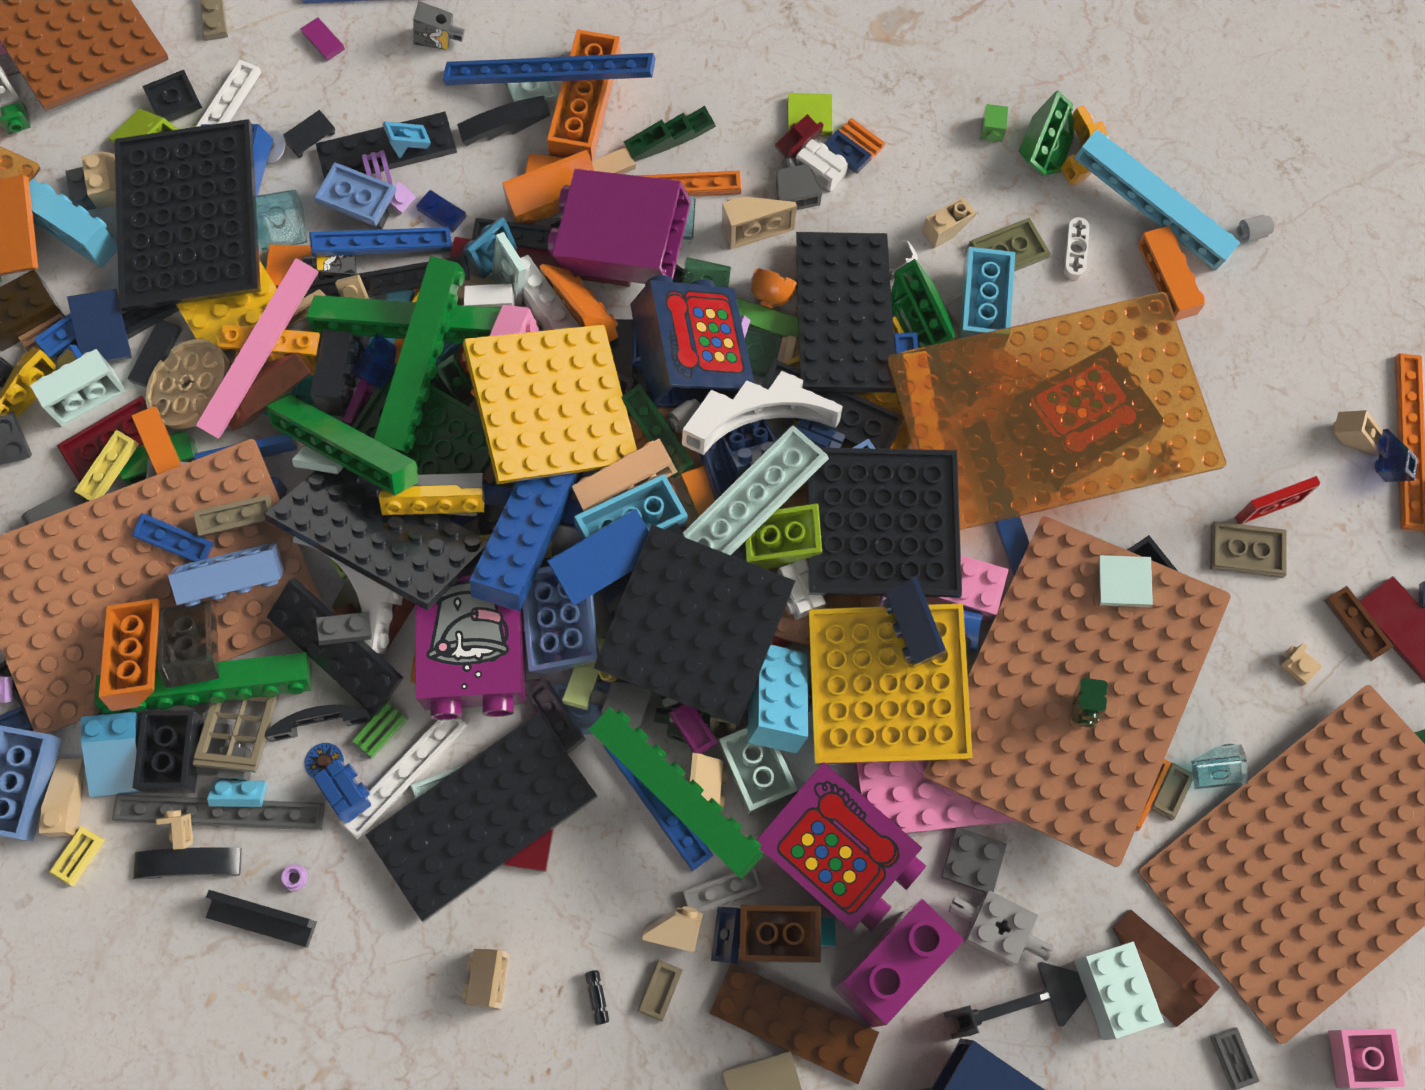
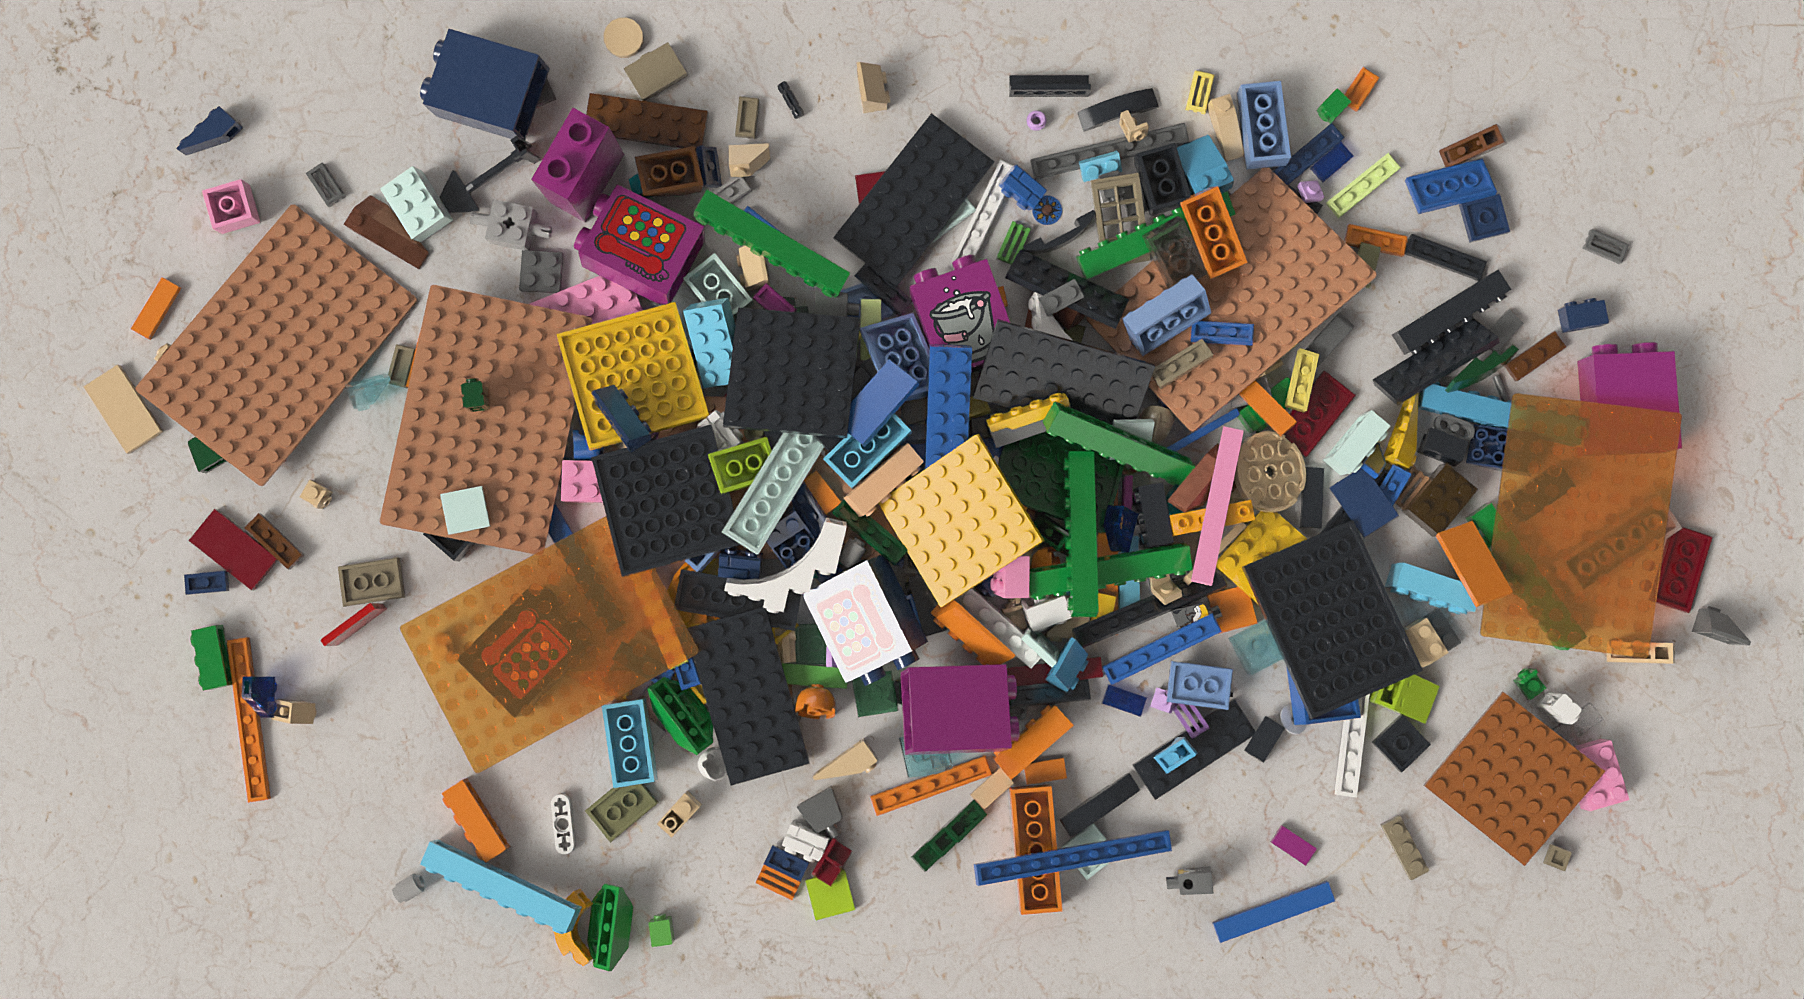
camera: 160 degrees right, 15 degrees up
(285, 471) = (1163, 421): none -> dark tan helmet

